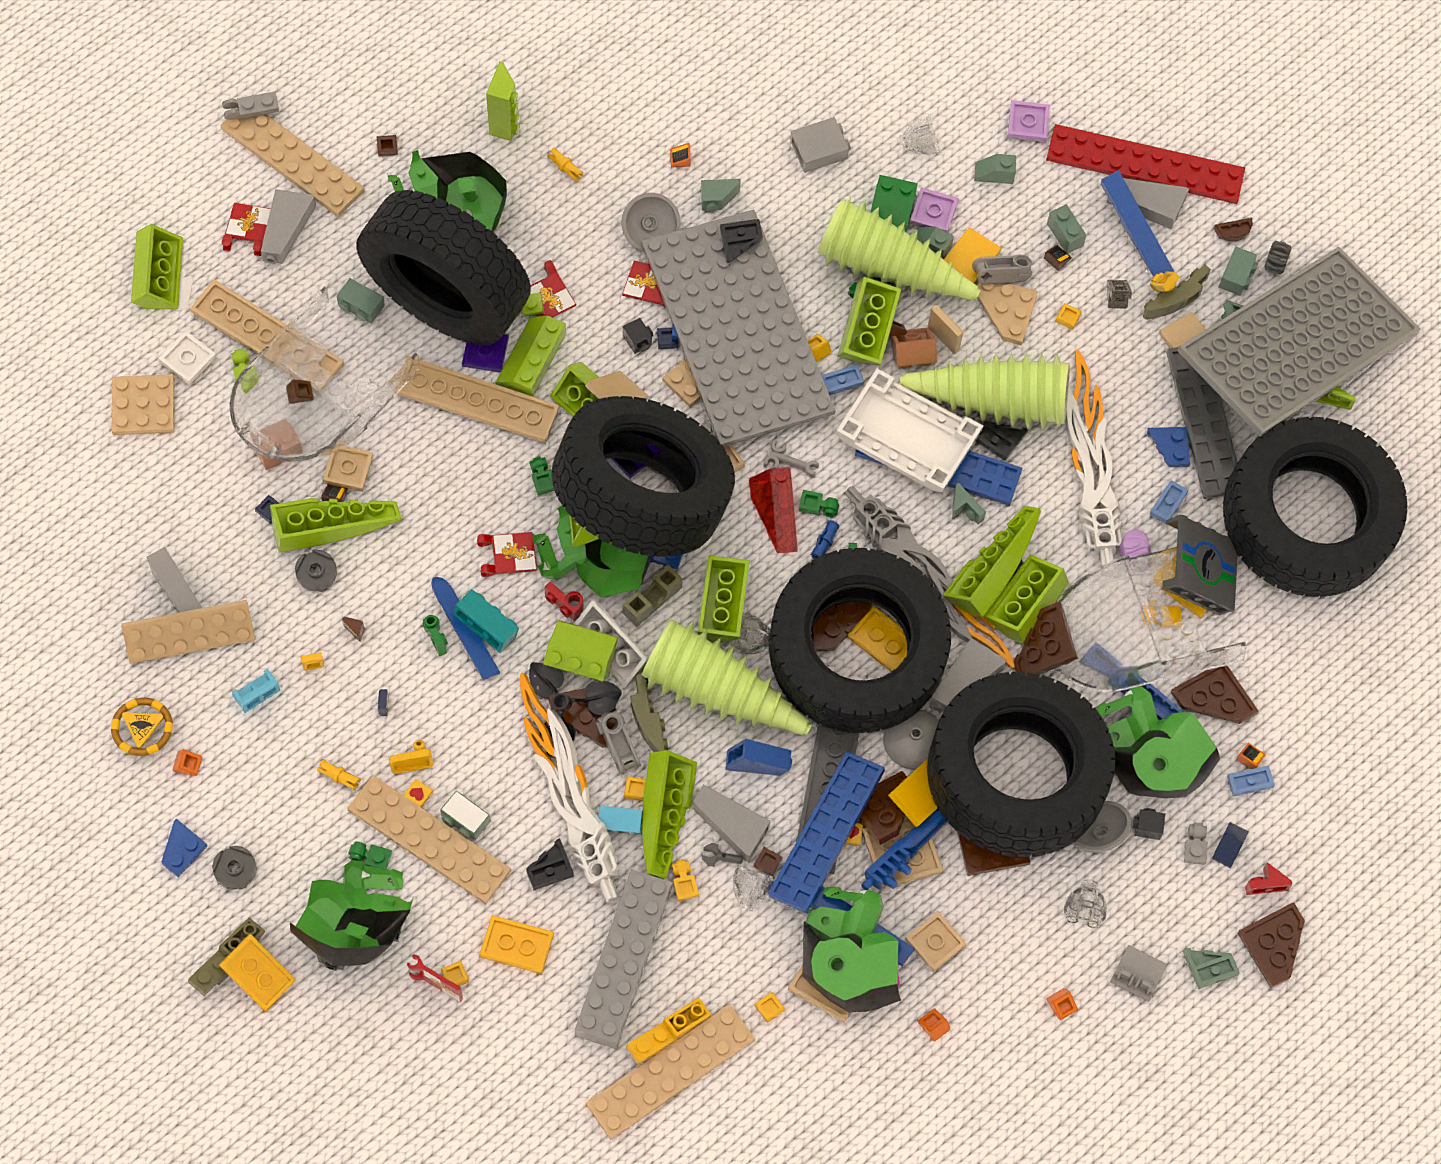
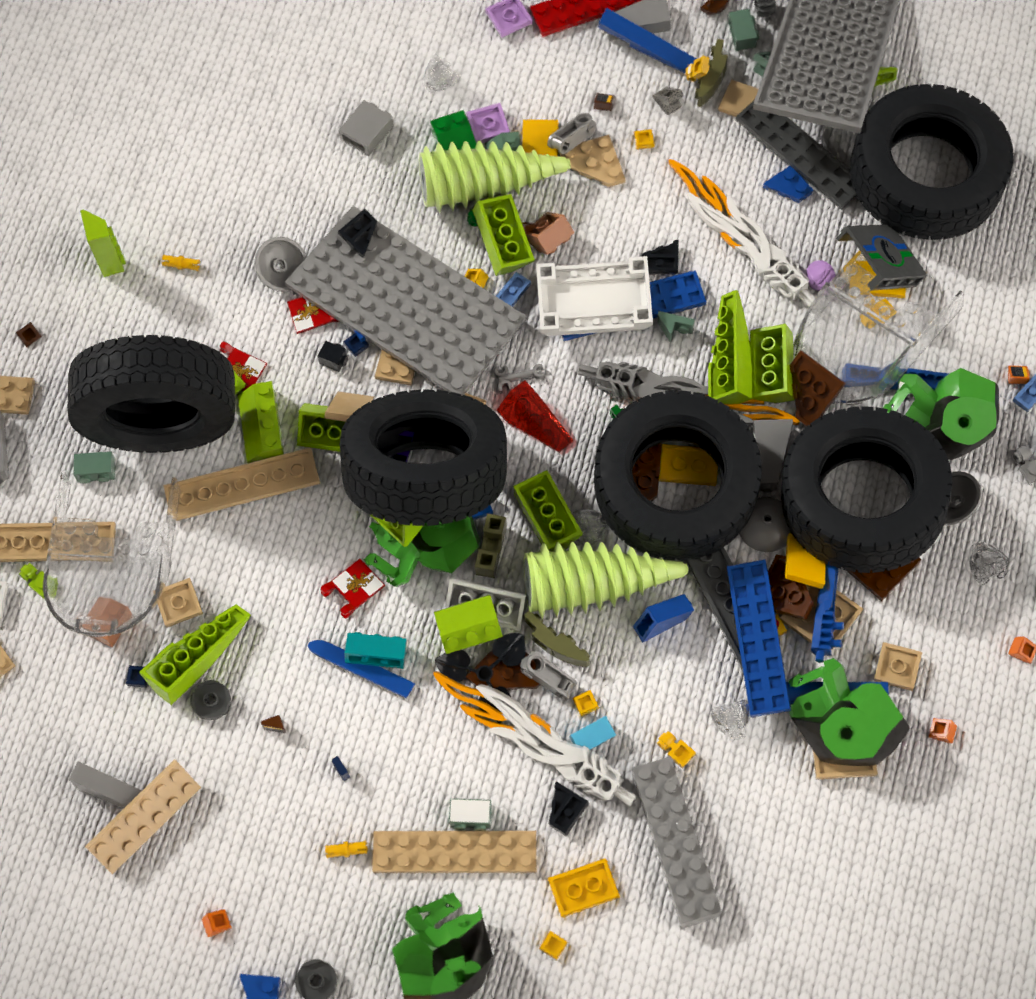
camera: 25 degrees left, 0 degrees up
(142, 726) = (159, 918): piece -> none
(256, 691) = (231, 827): medium azure hinge -> none
(299, 391) = (98, 567): reddish brown slope -> none
(312, 661) = (260, 773): yellow tile -> none
(334, 492) = (181, 629): slope -> none
(375, 857) = (423, 895): green plate -> none
(411, 761) = (401, 794): yellow piece -> none
(418, 793) = (419, 821): yellow tile -> none
(432, 625) = (348, 690): green plate -> none
(435, 979) = (542, 959): flag -> none
(462, 181) = (107, 320): piece -> none
(486, 357) = (224, 447): dark purple tile -> none
(541, 479) = (339, 513): green plate -> none
(556, 596) = (416, 595): red plate -> none
(665, 802) = (617, 698): lime wedge -> none
(668, 1031) = (751, 874): yellow slope -> none
(670, 1072) = (774, 906): tan plate -> none
(680, 156) = (266, 201): slope -> none
(718, 193) = (315, 211): sand green slope -> none
(719, 856) = (688, 711): dark grey bar -> none
(732, 821) = (677, 678): light grey slope -> none
(767, 861) = (728, 691): reddish brown plate -> none
(769, 1007) = (811, 802): yellow tile -> none
(812, 502) = (560, 397): green plate -> none
(825, 539) = (589, 419): blue pin -> none
(945, 329) = (563, 203): tan tile -> none
(996, 169) = (512, 64): sand green slope -> none
(1000, 388) = (639, 220): yellowish green cone -> none
(1066, 229) = (596, 76): sand green brick -> none
(1149, 824) = (986, 471): black brick -> none
(1168, 501) = (819, 227): medium blue plate -> none
(1216, 695) = (959, 346): reddish brown plate -> none

